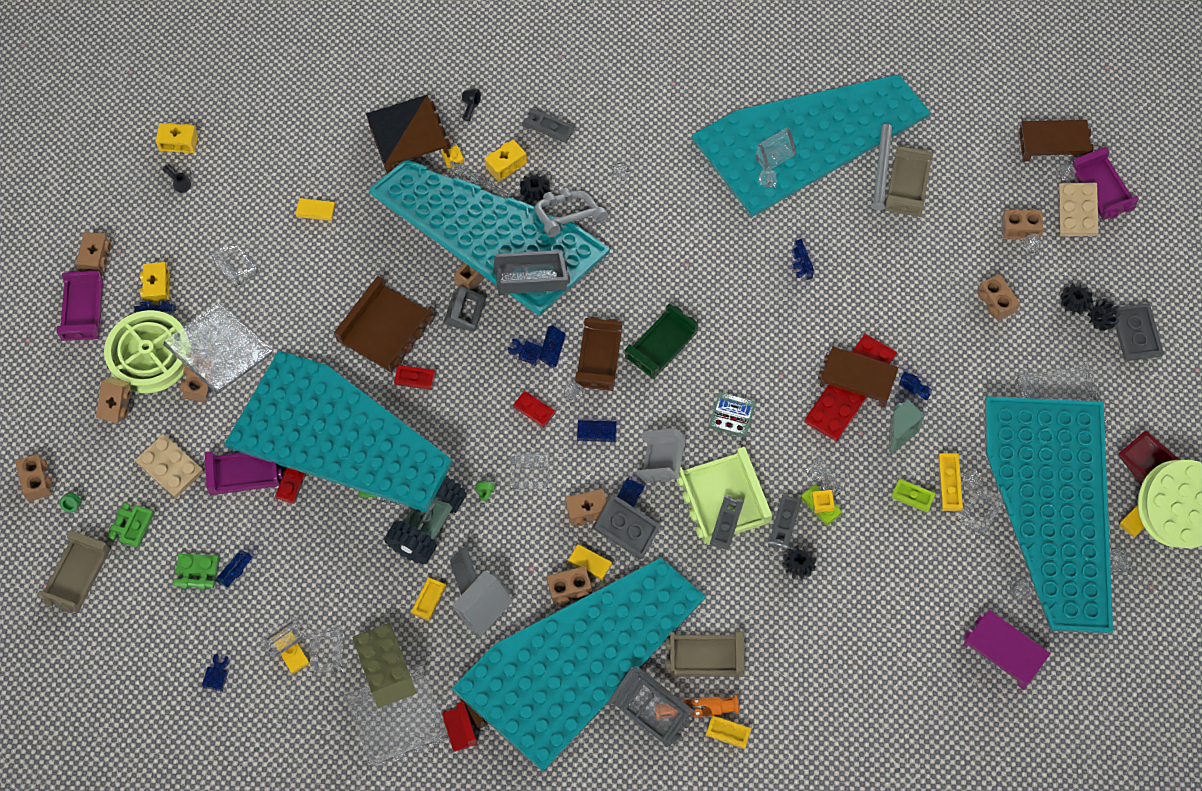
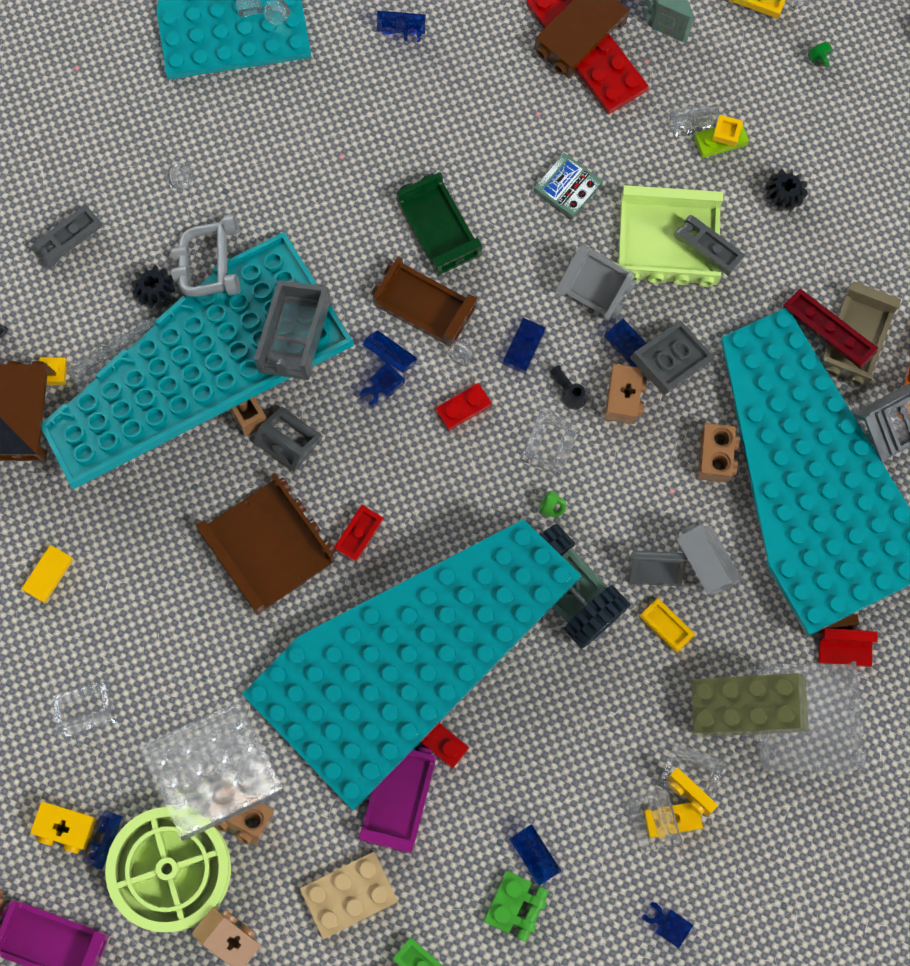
camera: 75 degrees left, 10 degrees up
(313, 645) = (699, 800): none -> yellow plate
(505, 160) = (93, 292): yellow brick -> none
(574, 482) = (568, 398): none -> black bar
(595, 564) = (692, 419): yellow tile -> none
(699, 629) = (831, 328): none -> dark red plate
(785, 522) = (733, 186): dark grey plate -> none
(913, 495) = (750, 38): lime plate -> none
(927, 548) = (821, 52): none -> green tile

